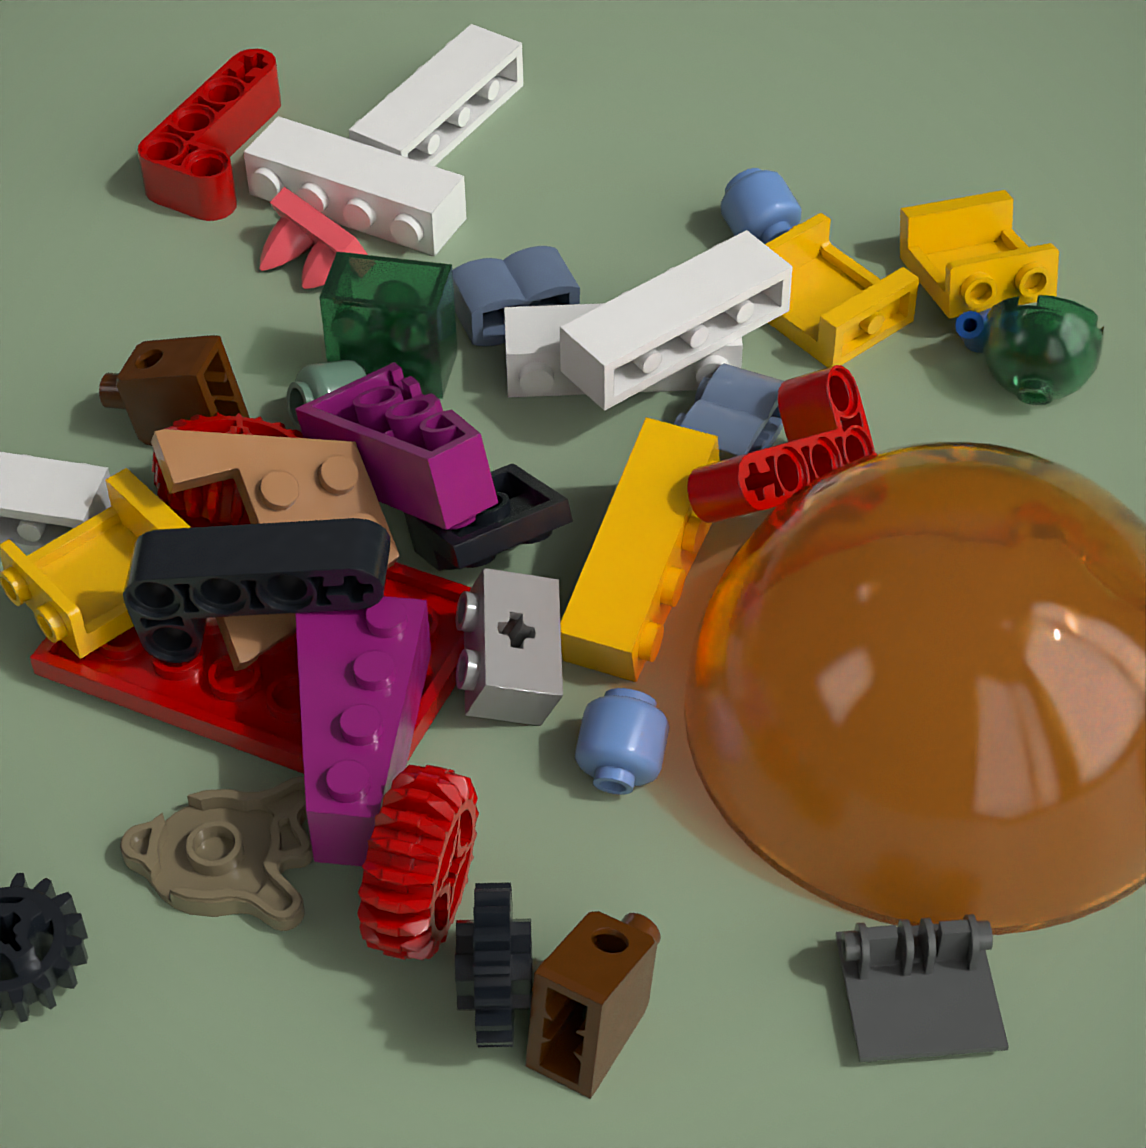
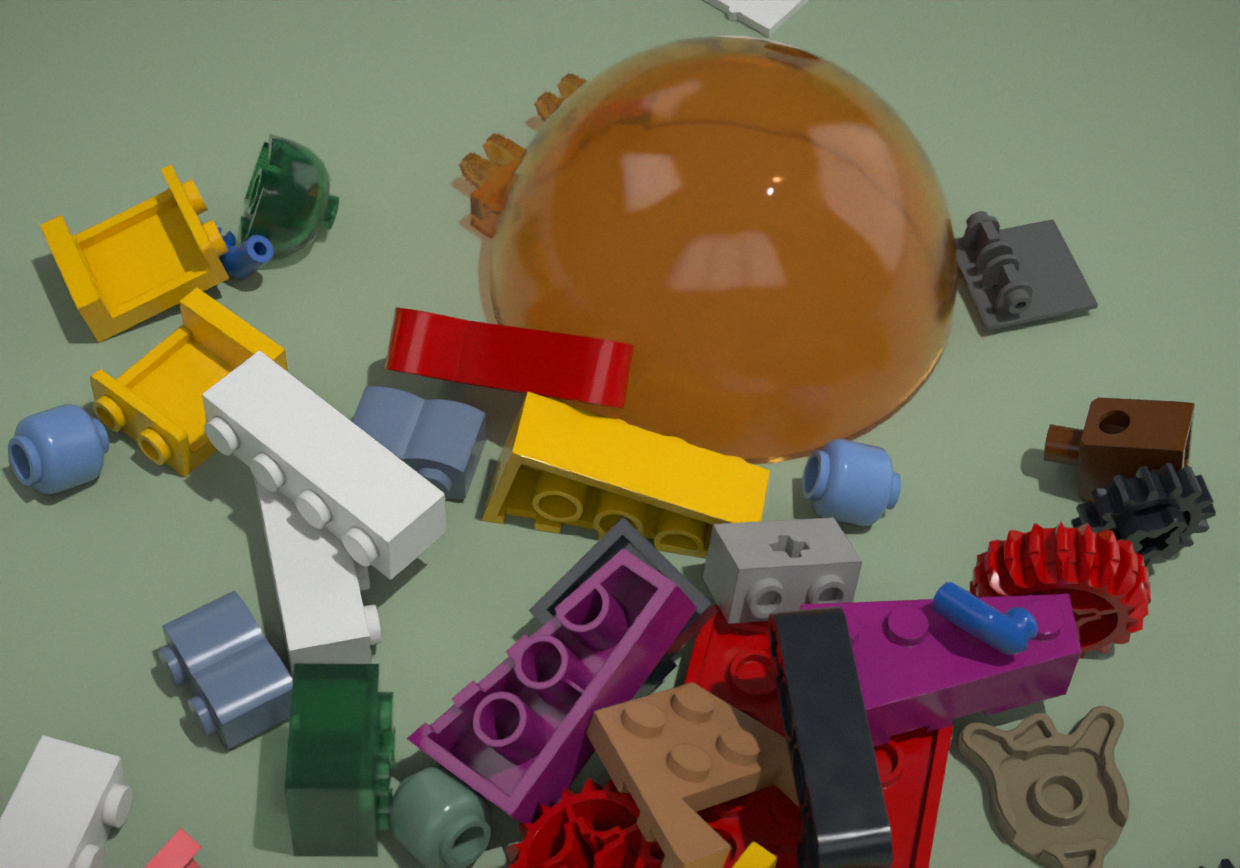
camera: 105 degrees left, 5 degrees up
(327, 716) = (1003, 632): none -> blue arm

